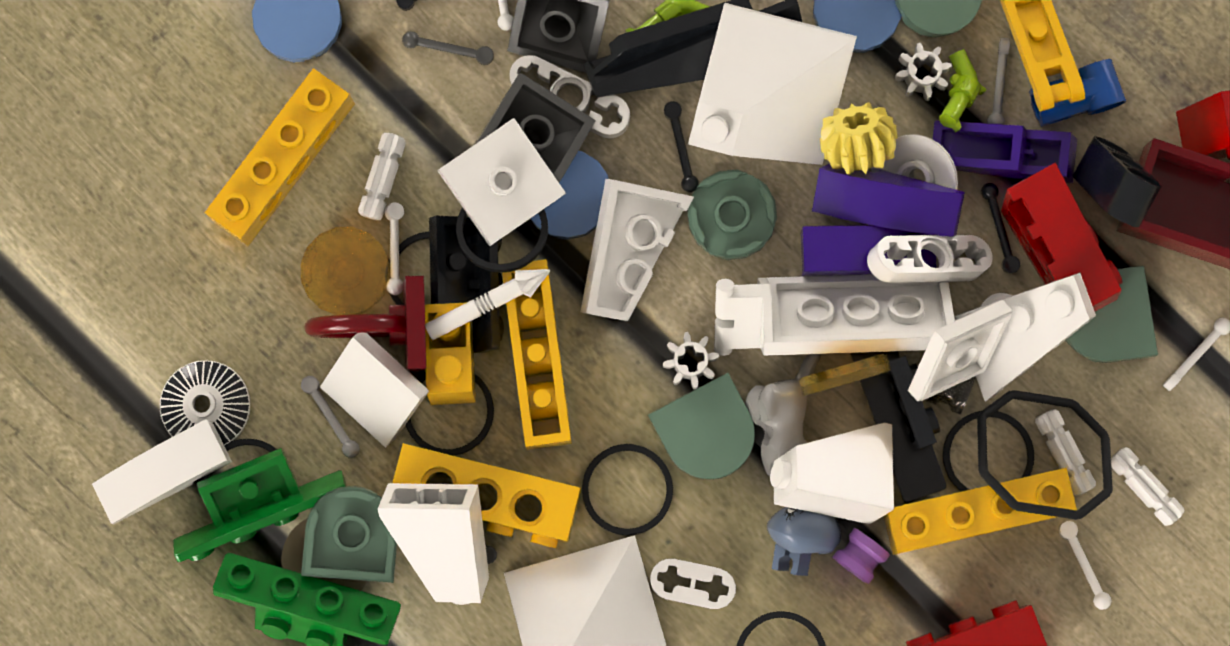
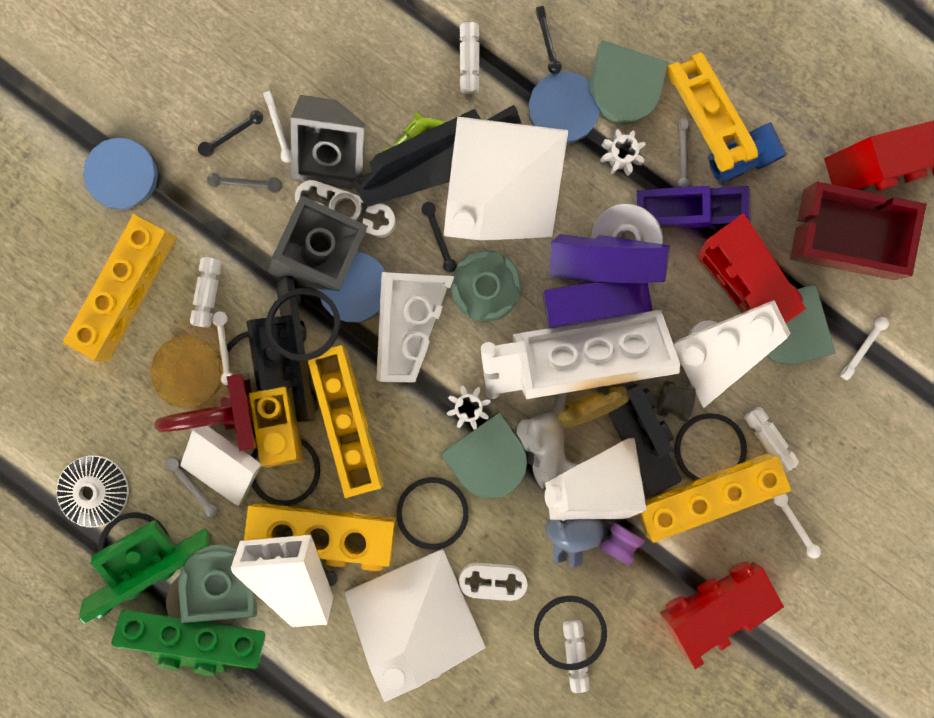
camera: 10 degrees left, 5 degrees up
(162, 471) = (64, 549): white slope -> none
(501, 182) = (295, 287): white plate -> none
(525, 283) = (325, 368): white piece -> none
(858, 138) = (579, 213): light yellow gear -> none
(916, 270) = (637, 311): white beam -> none
(960, 350) = (685, 376): white plate -> none
(963, 91) = (656, 163): lime piece -> none
(1010, 263) = (709, 296): black hinge -> none
(1034, 508) = (727, 481): black piece -> none
(1116, 181) = (793, 221): black beam -> none
(1146, 486) = (838, 457): white axle -> none

